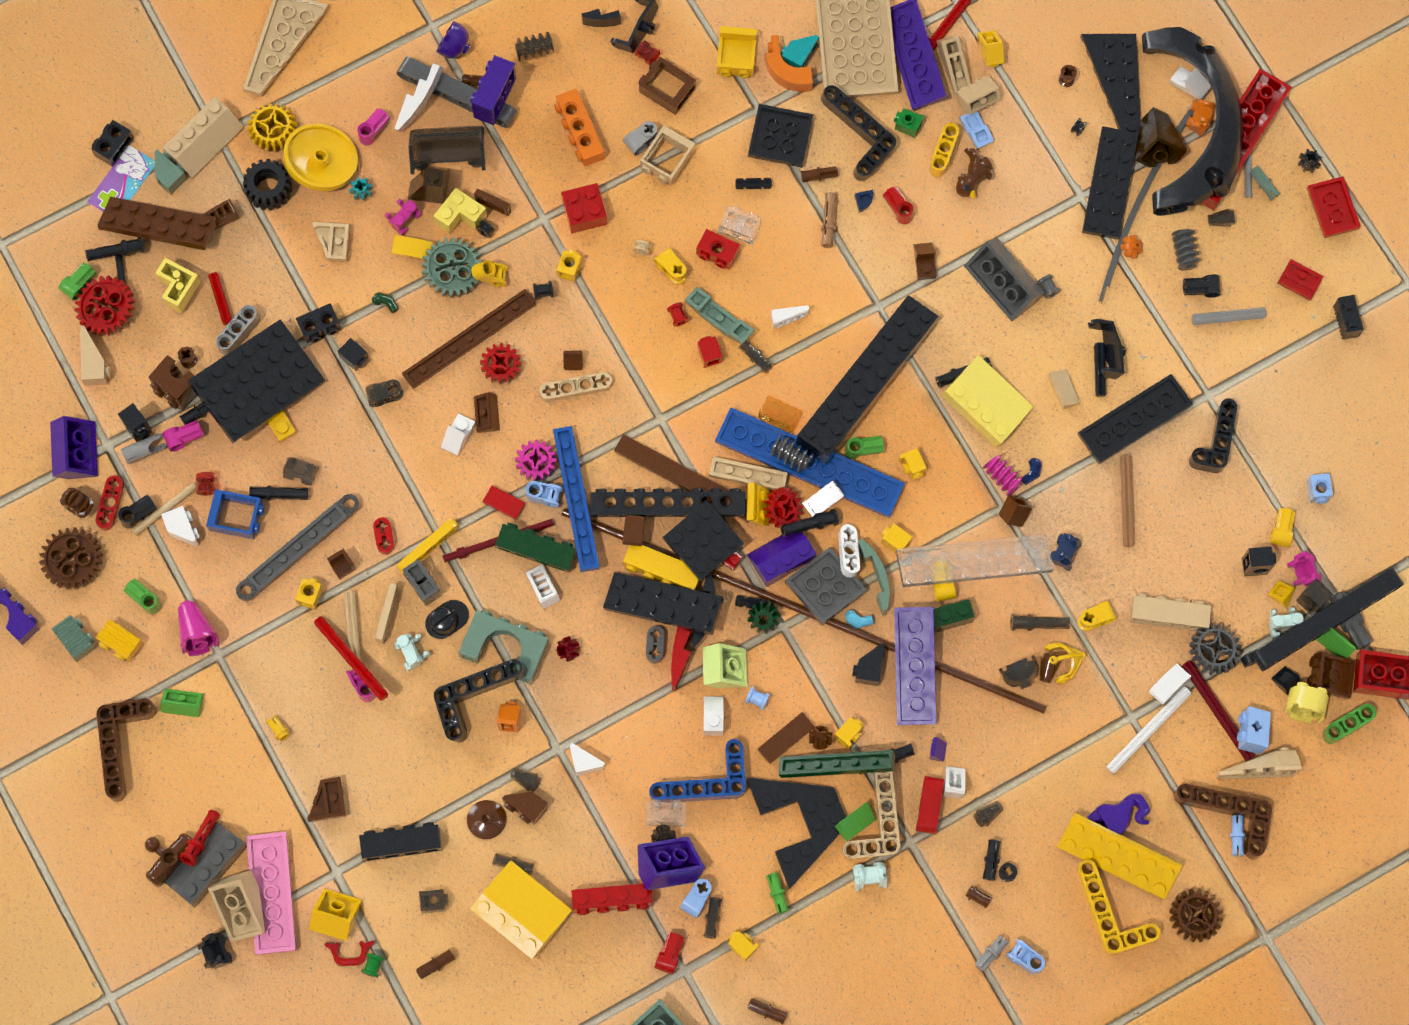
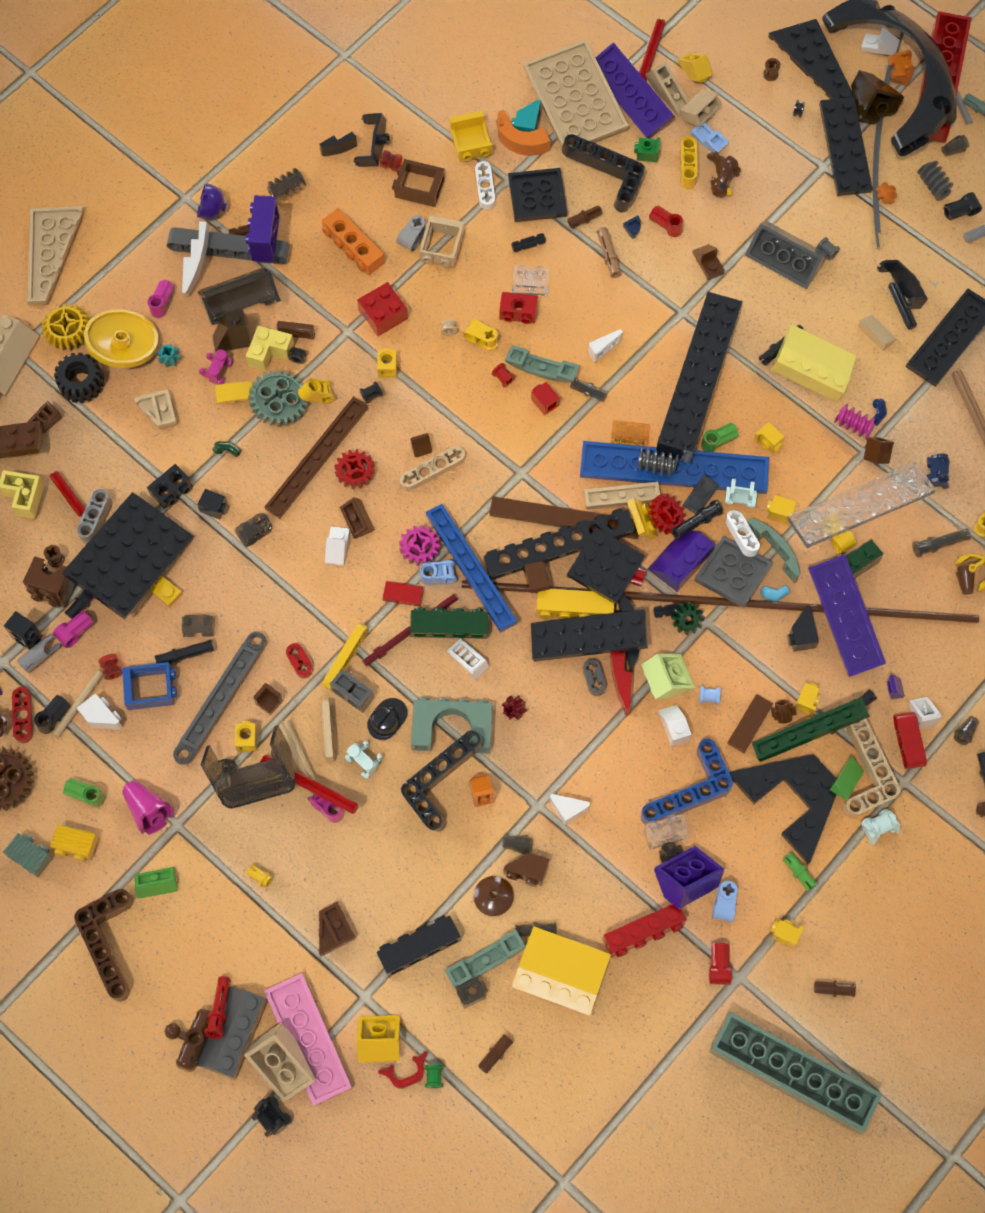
camera: 15 degrees left, 5 degrees down
(300, 639) = (254, 782): none -> clear smoke windscreen
(456, 876) = (486, 959): none -> sand green slope
(712, 918) = (747, 916): clear smoke pin -> none
(734, 115) = (483, 191): none -> white beam
(861, 512) = (741, 495): none -> light aqua piece
(1020, 673) = (944, 591): clear smoke cylinder -> none

